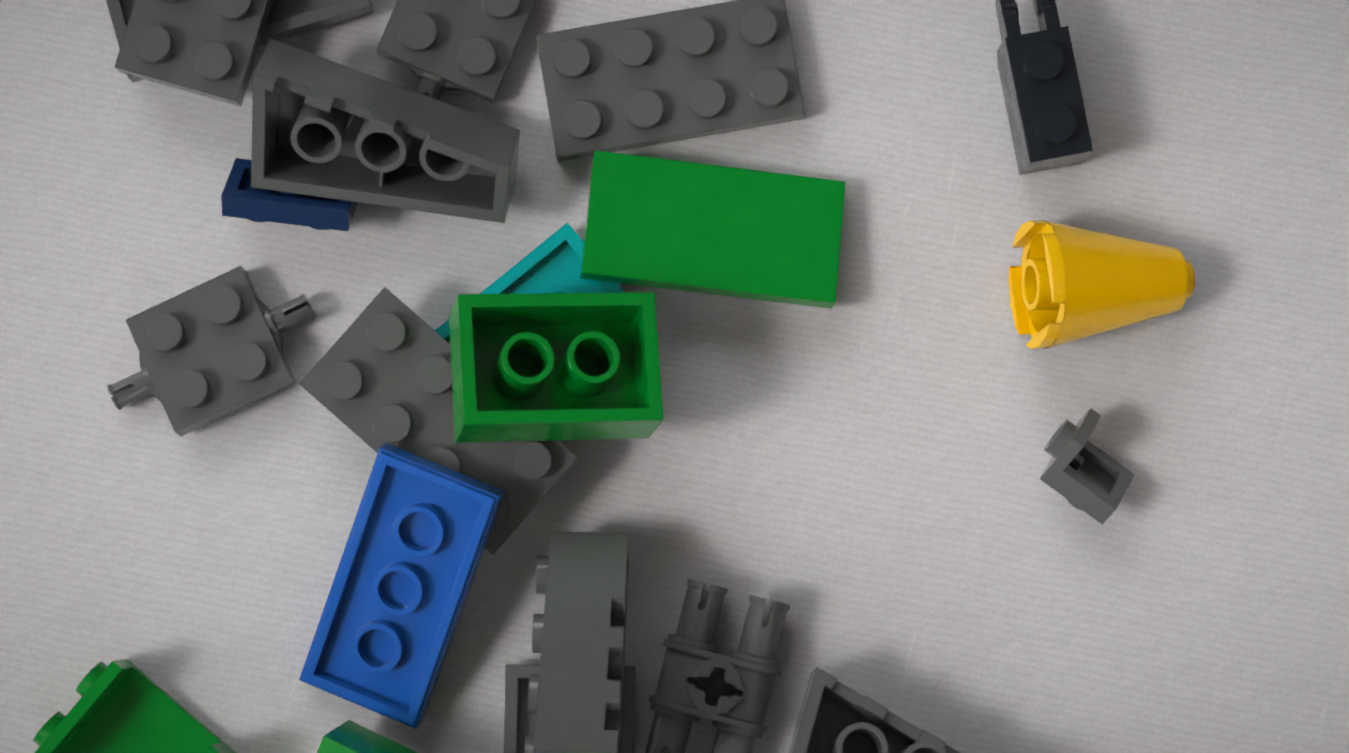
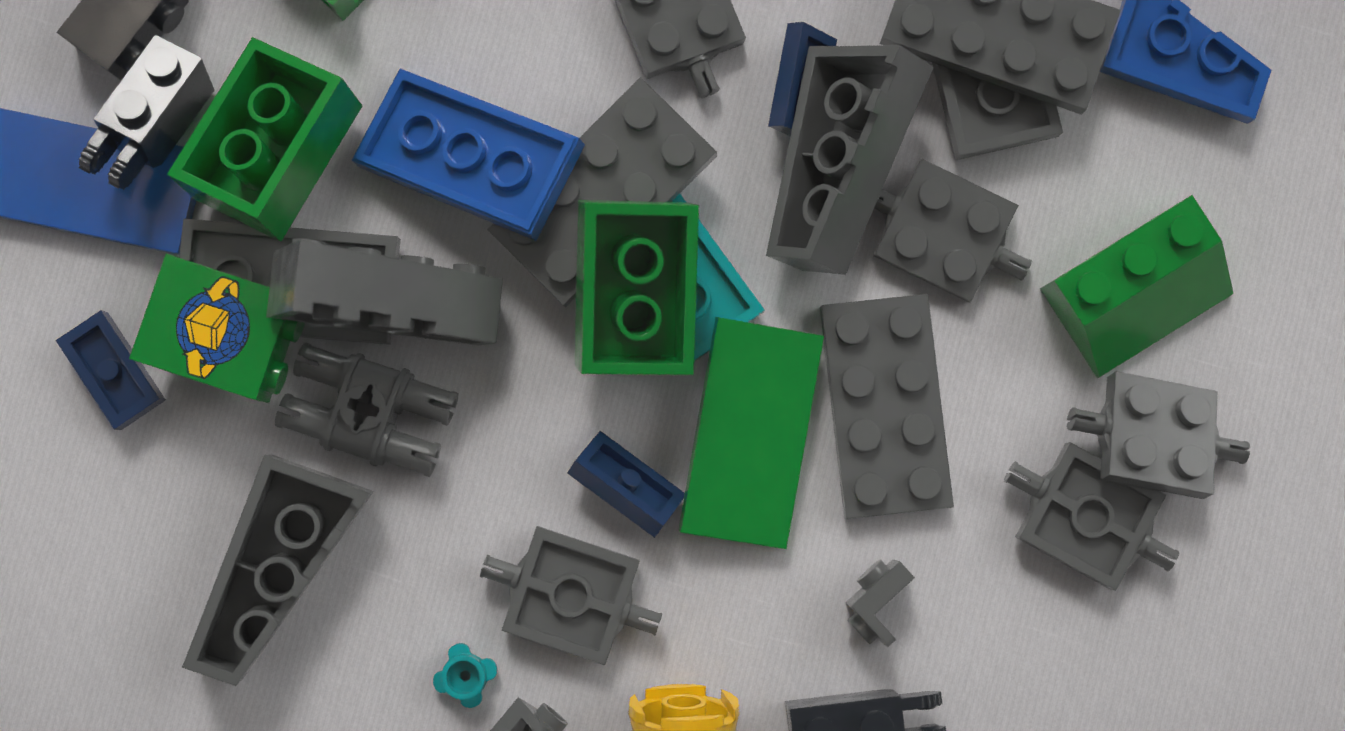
camera: 90 degrees right, 0 degrees up
(782, 370) = (626, 483): none -> dark blue plate
(881, 71) = (879, 586): none -> dark grey bracket
(916, 427) = (570, 595): none -> dark grey plate
(1036, 540) = (480, 671): none -> teal plate

